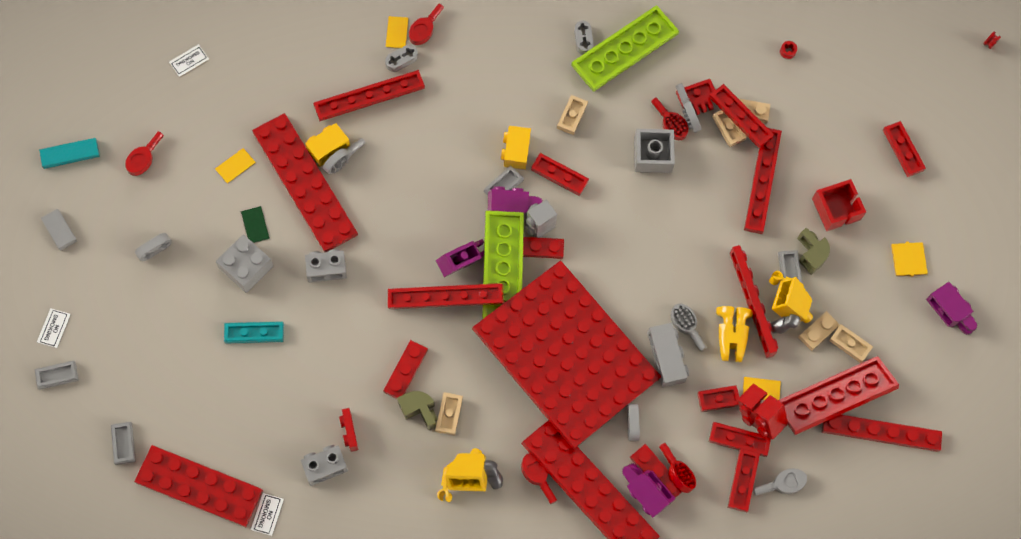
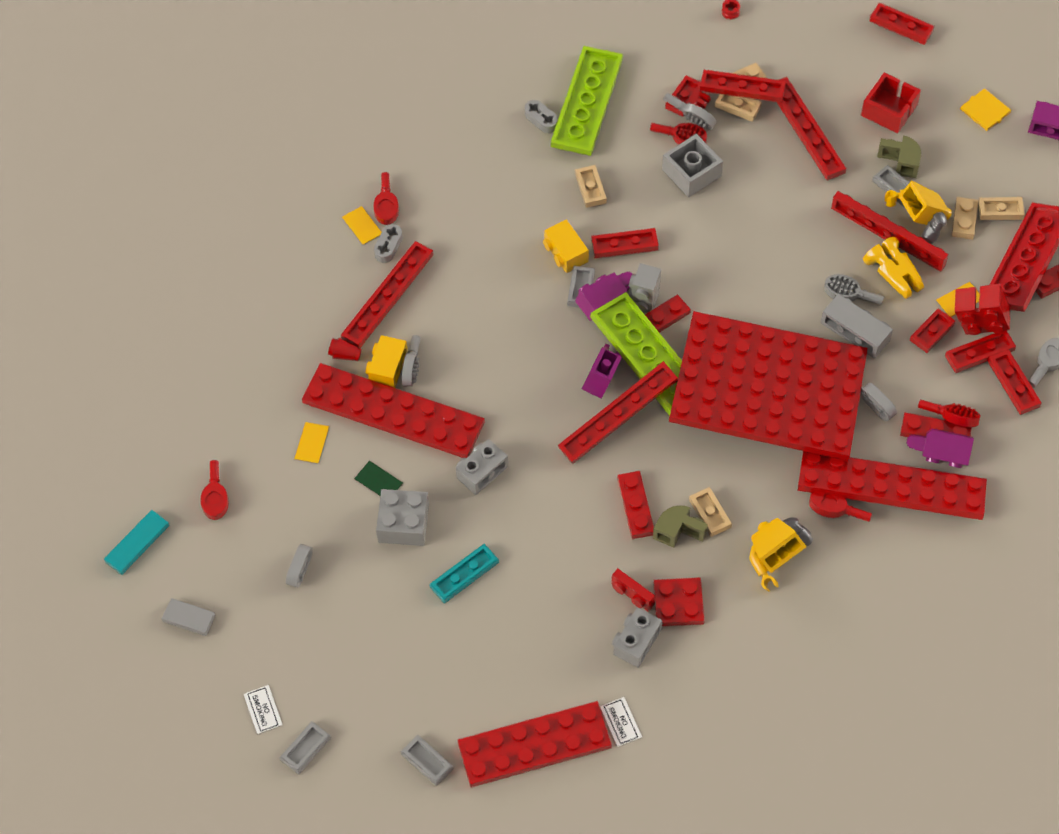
camera: 30 degrees left, 10 degrees down
(189, 60) = (181, 382): white sticker -> none
(306, 114) = (344, 350): none -> red cone
(374, 461) = (679, 601): none -> red plate

